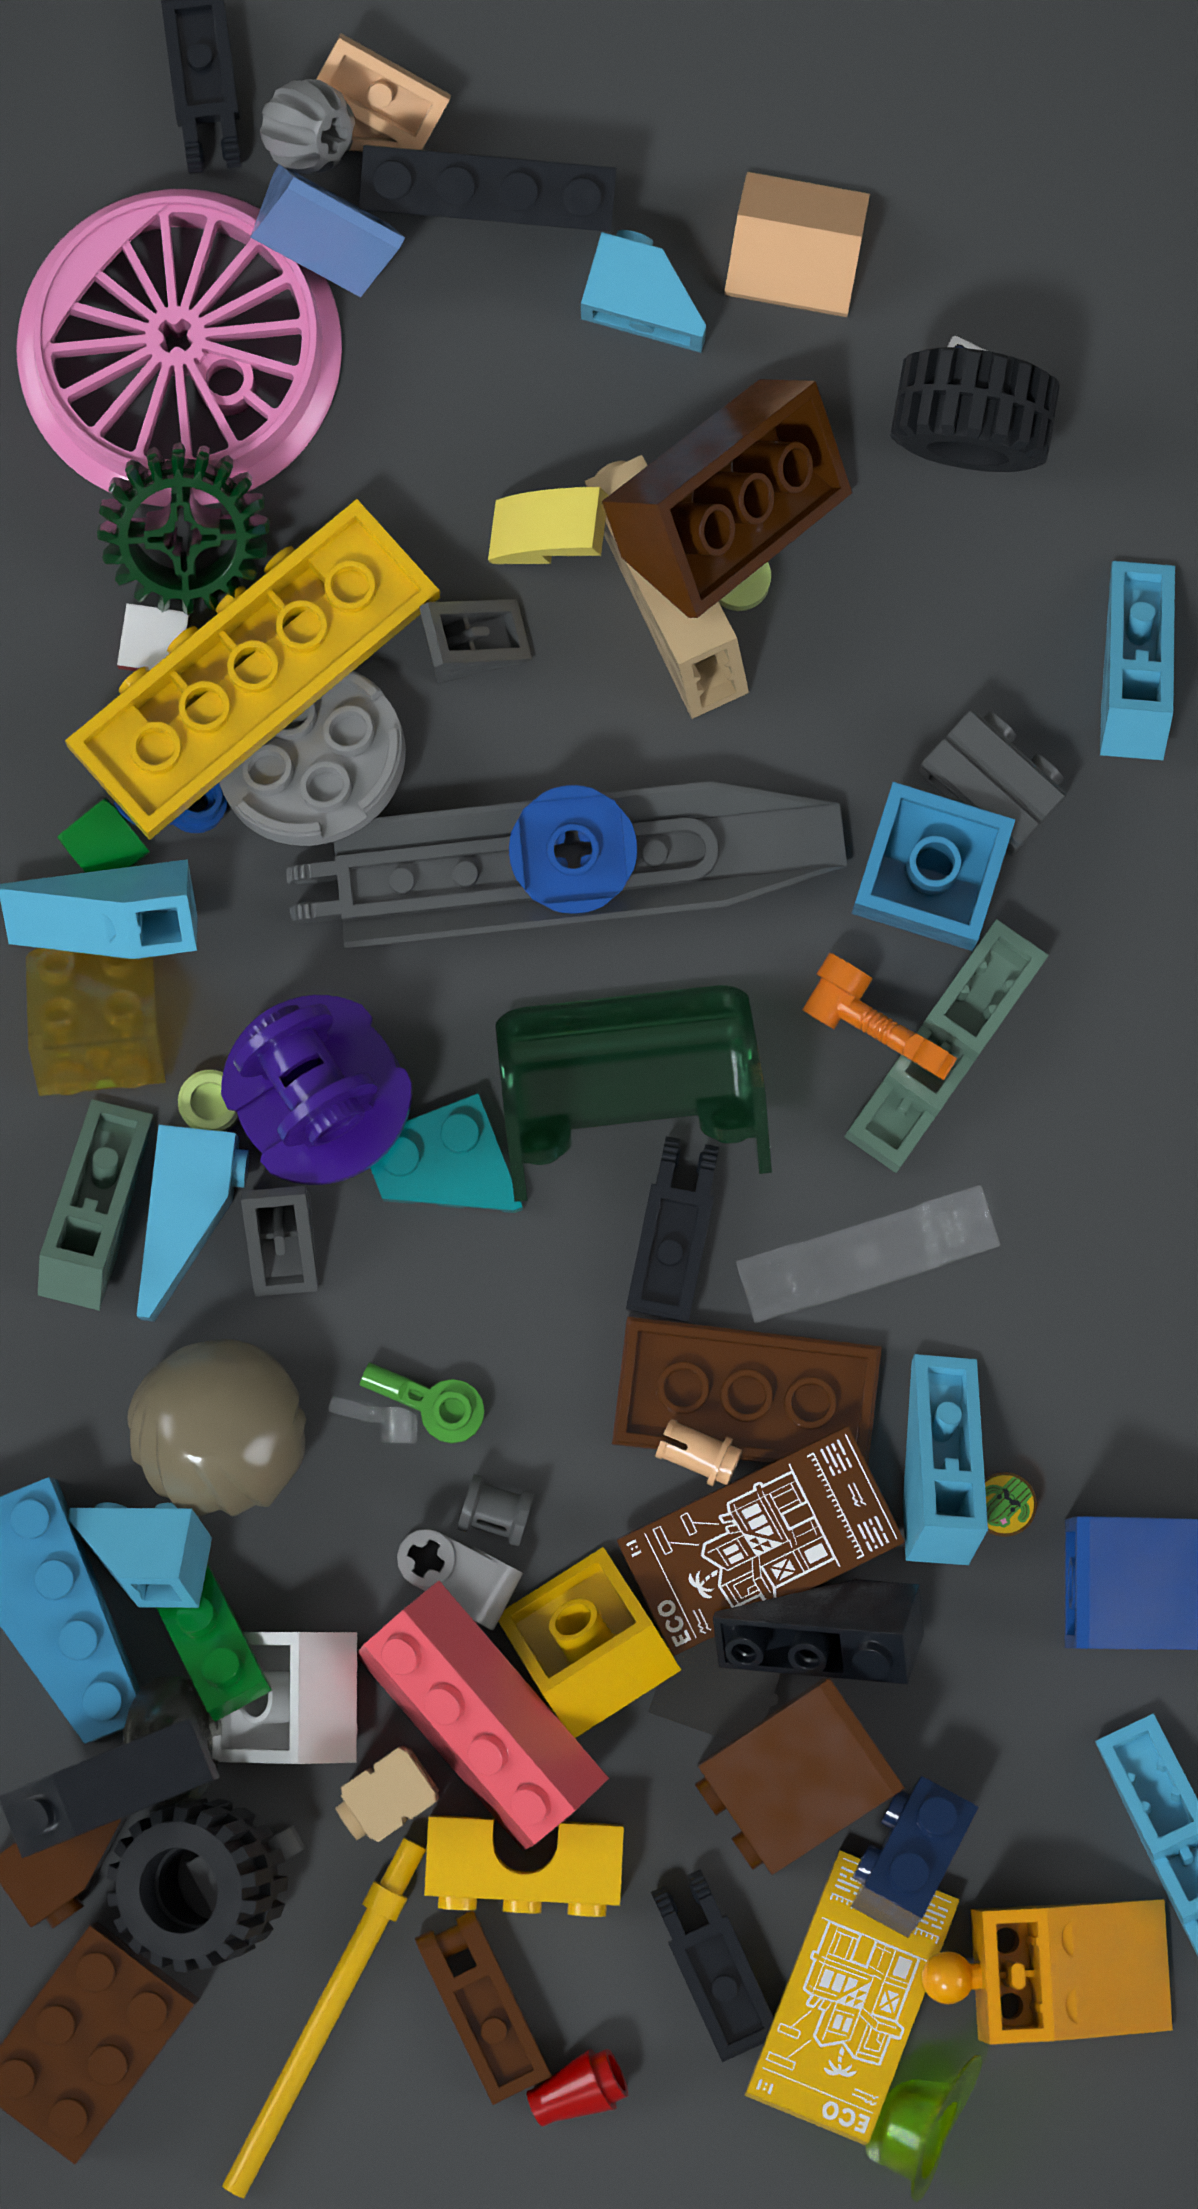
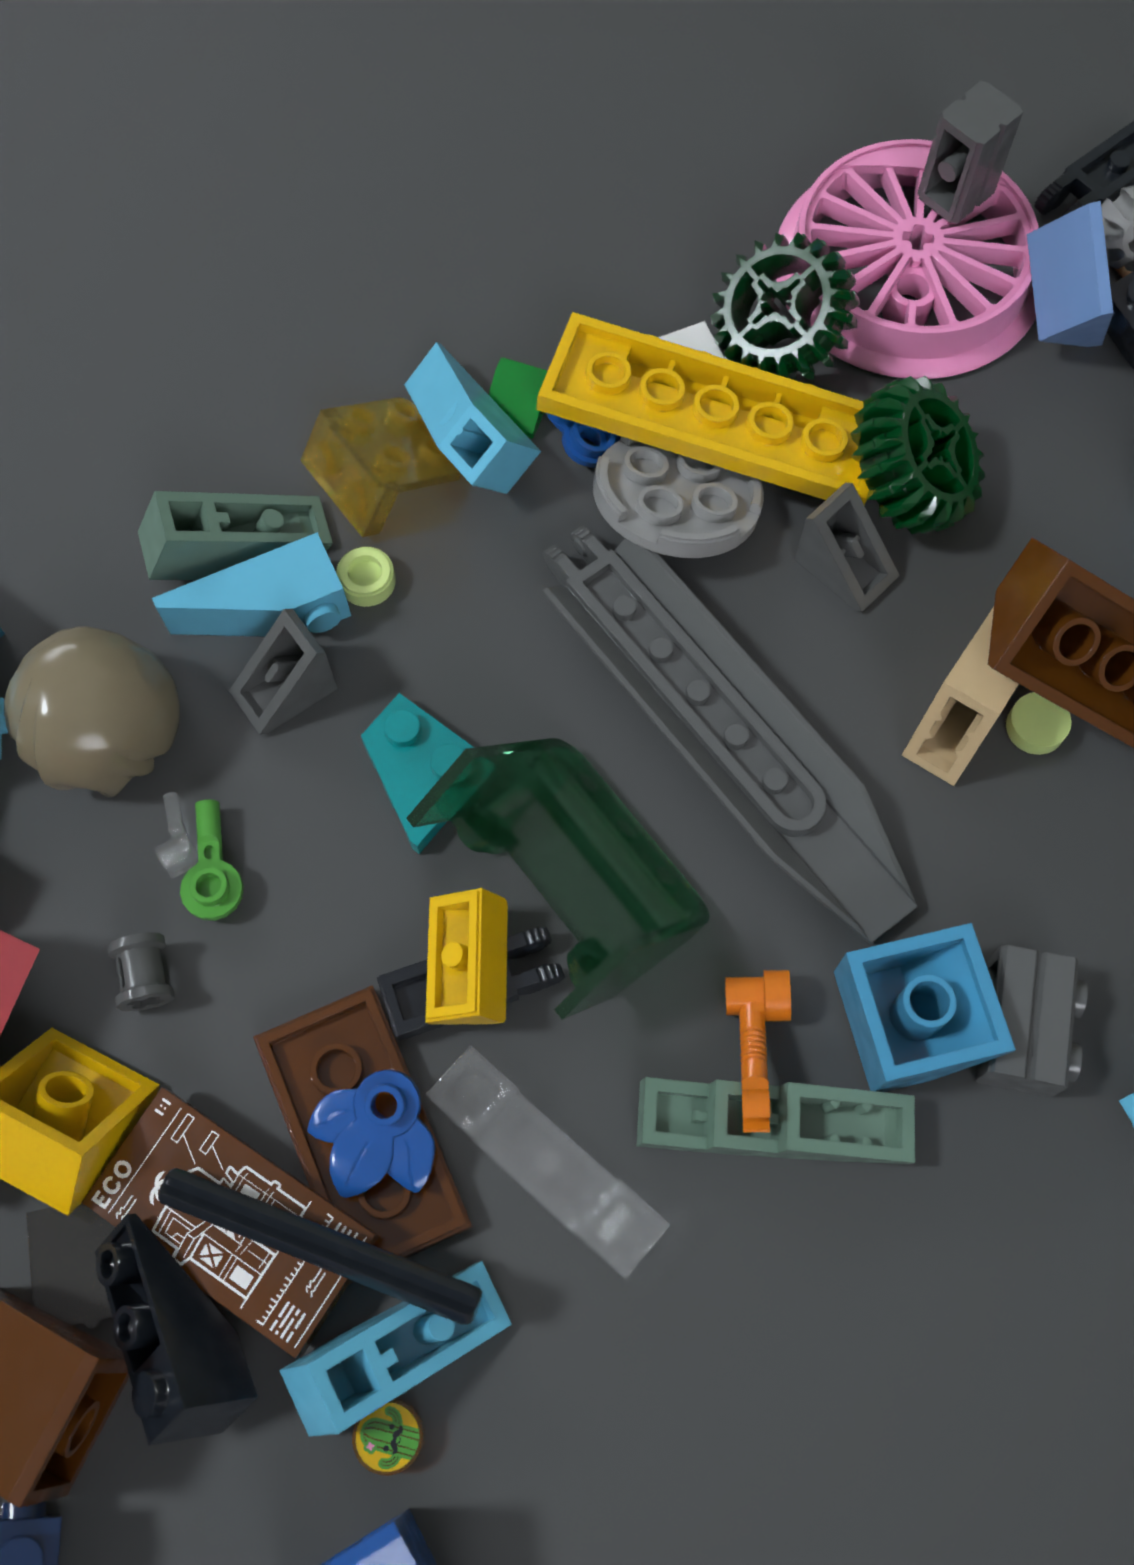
camera: 60 degrees right, 15 degrees down
(143, 244) = (969, 151): none -> dark grey brick
(317, 1089) = (417, 625): dark purple piece -> none
(421, 520) = (918, 455): none -> dark green gear
(470, 1575) = (66, 981): light grey piece -> none
(548, 524) = (975, 548): light yellow slope -> none
(598, 822) = (736, 672): blue plate -> none
(658, 1221) = (467, 958): none -> yellow slope
(703, 1455) = (279, 1114): light nougat pin -> none
(768, 1391) = (371, 1143): none -> blue plate
(831, 1474) = (321, 1246): none -> black axle

